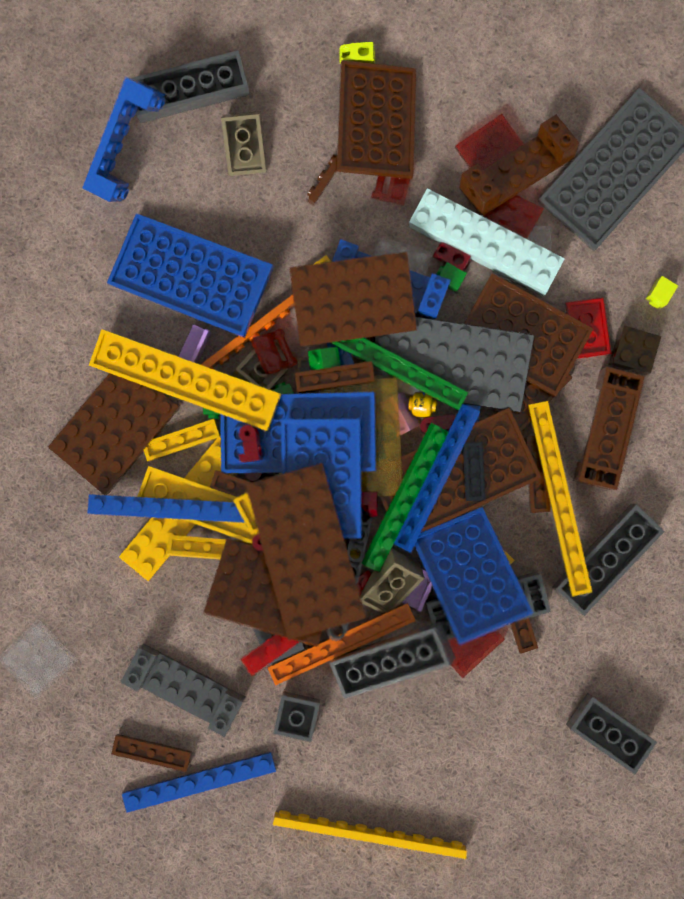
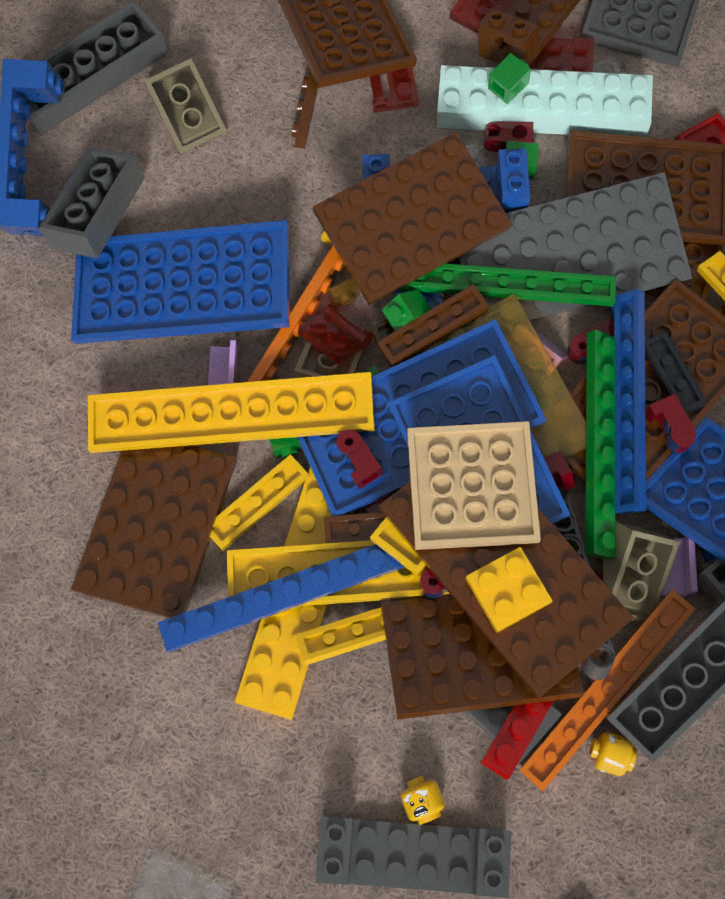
camera: 25 degrees left, 15 degrees down
(154, 194) = (92, 202): none -> dark grey brick
(203, 660) = (422, 800): none -> yellow head
(290, 324) = (344, 293): none -> pearl gold plate
(296, 716) = (596, 823): dark grey brick -> none
(297, 571) = (508, 589): none -> yellow plate
(304, 499) = (472, 485): none -> tan plate
(325, 682) = (613, 754): none -> yellow head
(422, 405) = (560, 324): yellow head -> none
(457, 504) = (673, 422): none -> dark red leg
(465, 222) = (509, 78): none -> green brick

